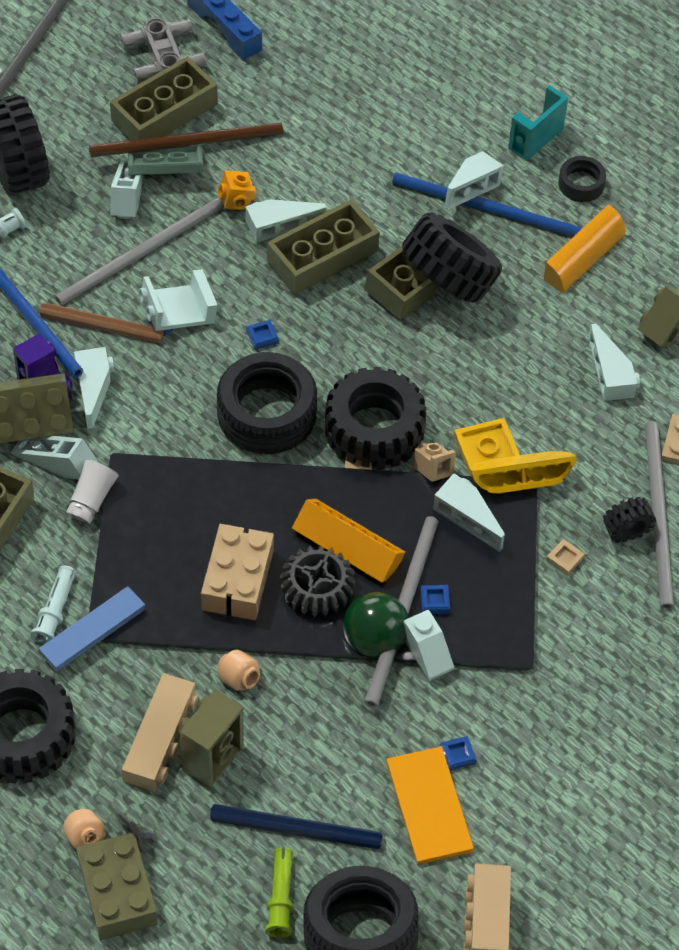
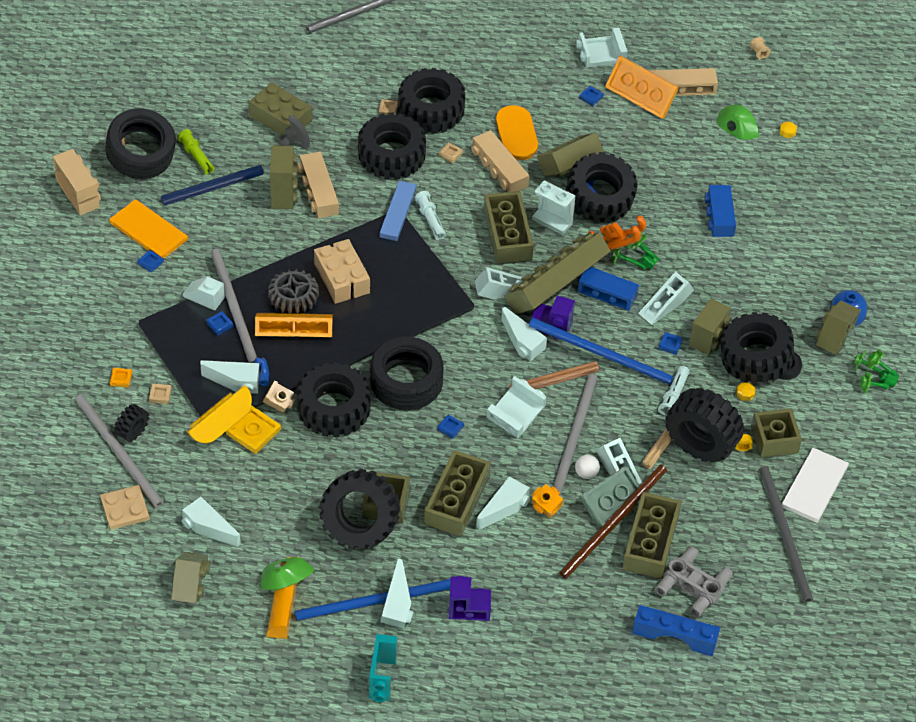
camera: 145 degrees right, 5 degrees down
(51, 194) = (656, 450): none -> tan axle
(82, 827) = (317, 123): light nougat head -> none
(91, 490) = (465, 277): white plant -> none
(159, 207) = (587, 466): none -> white piece
(238, 670) = (301, 233): light nougat head -> none
(375, 624) = (243, 288): dark green piece -> none
(403, 142) = (468, 602): none -> dark purple brick
(427, 505) = (264, 371): none -> blue arm
(559, 249) = (289, 574): none -> bright green piece
(577, 192) = (324, 669): black tyre -> none
(599, 606) = (121, 377): none -> light orange tile

